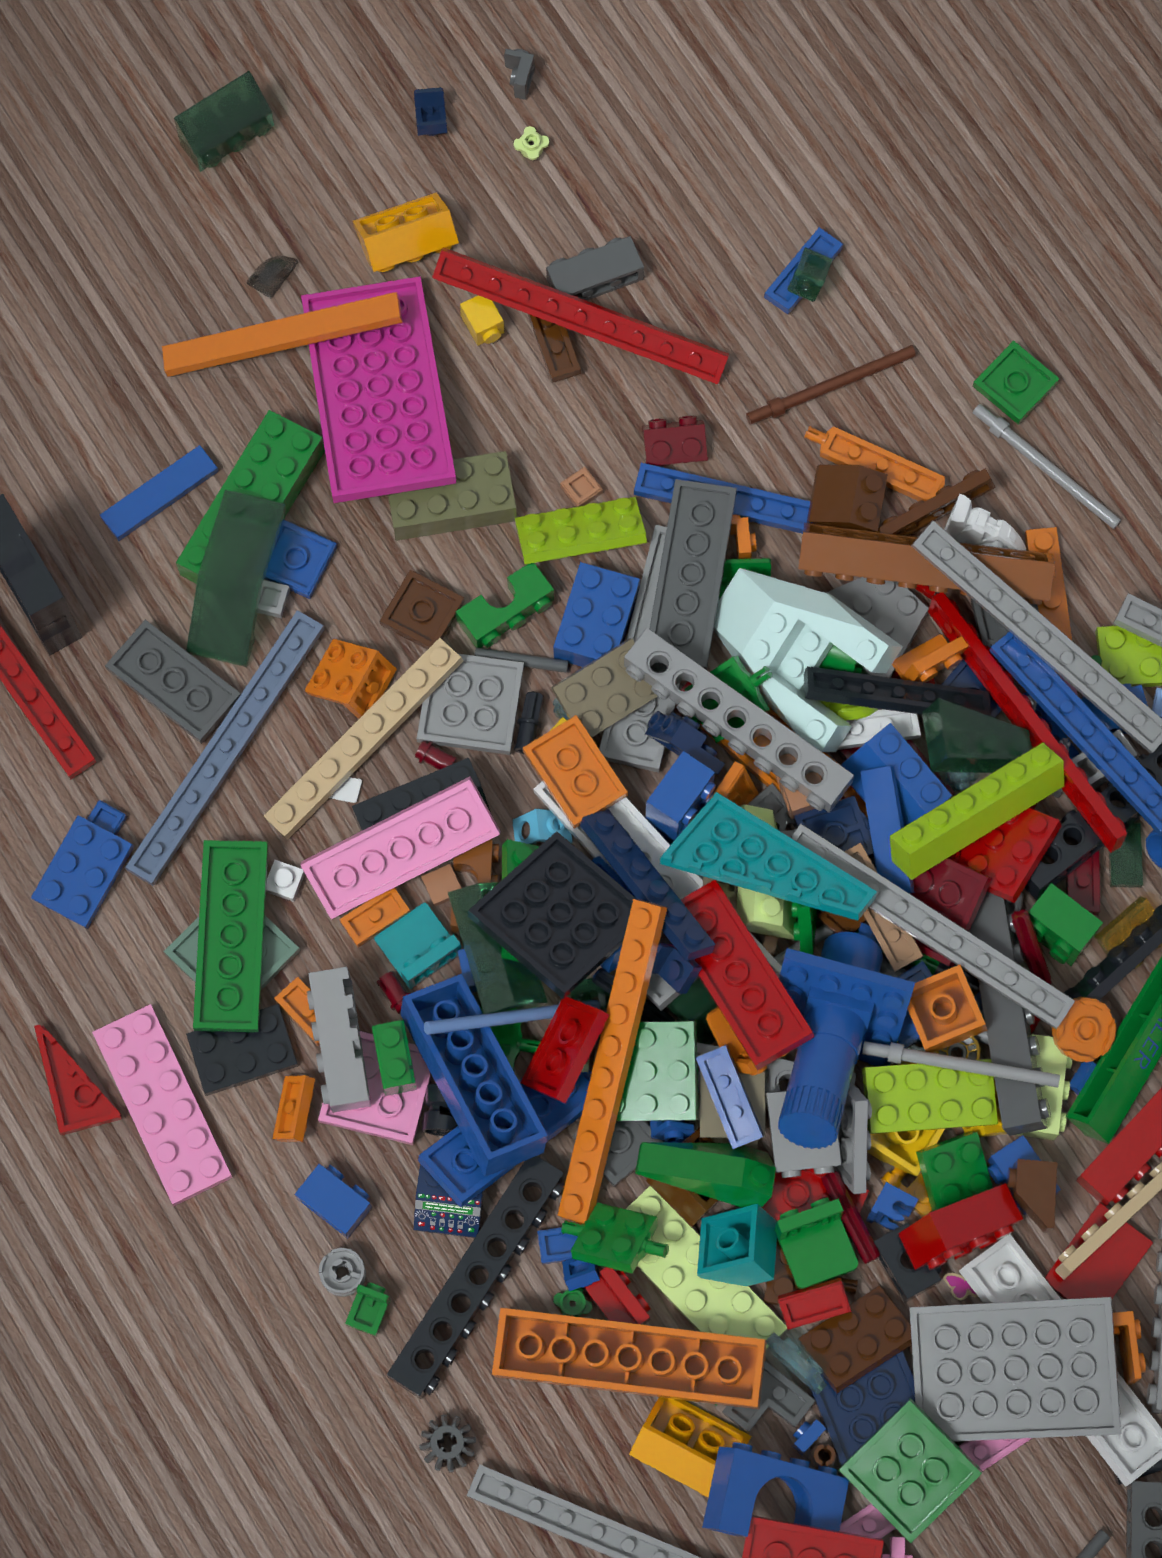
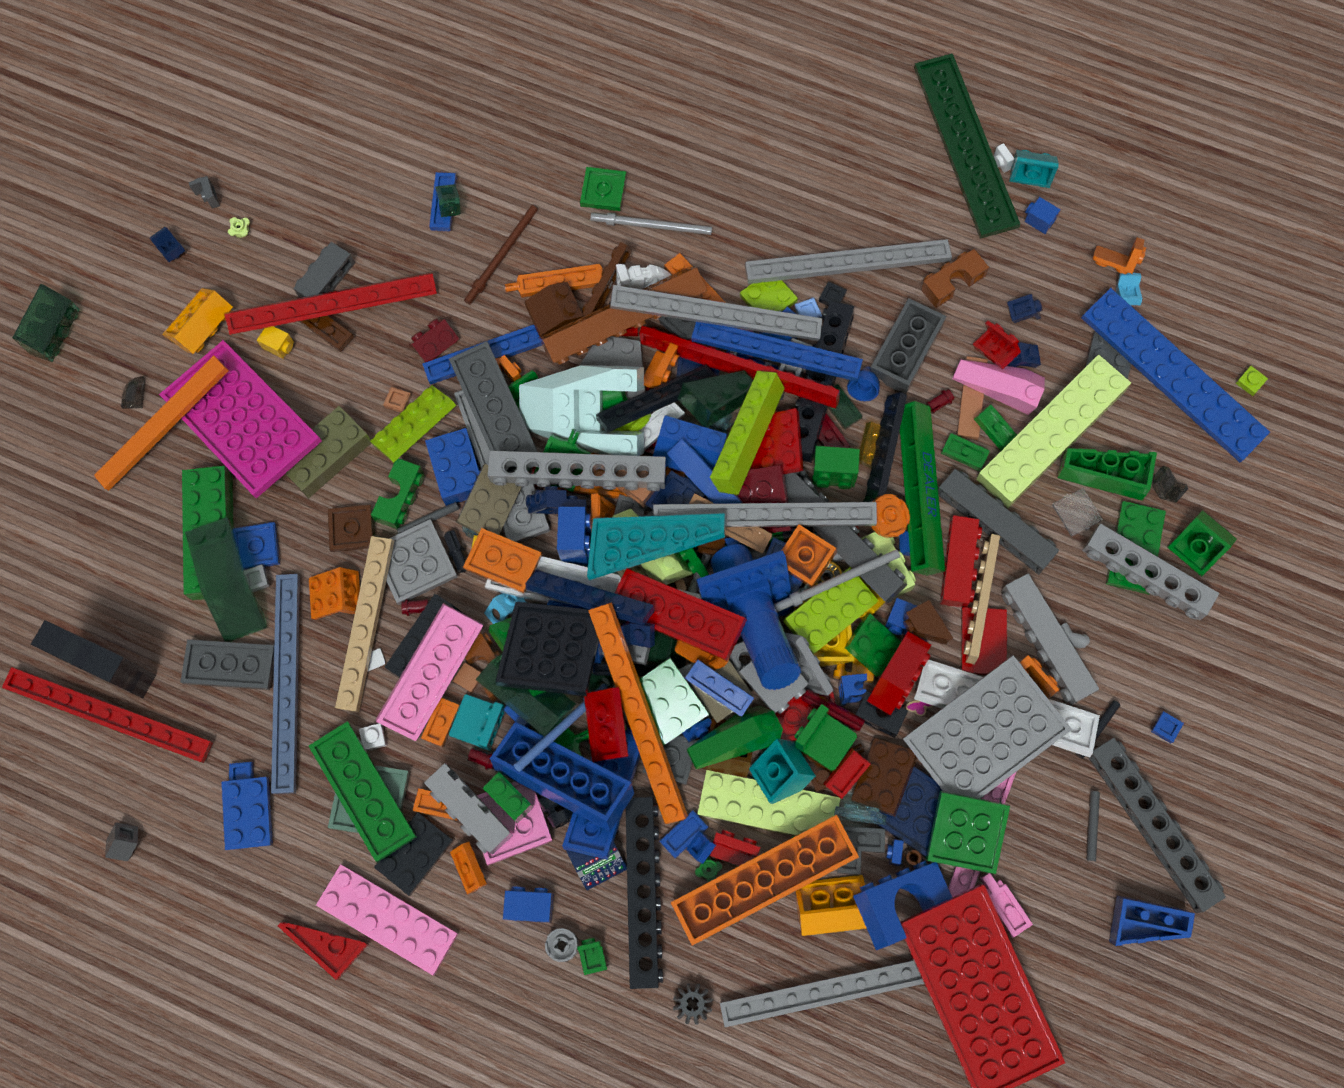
camera: 30 degrees left, 0 degrees up
(159, 493) = (147, 561): blue tile -> none
(615, 1238) = (708, 814): green plate -> none
(1030, 945) = (825, 487): dark red axle -> none

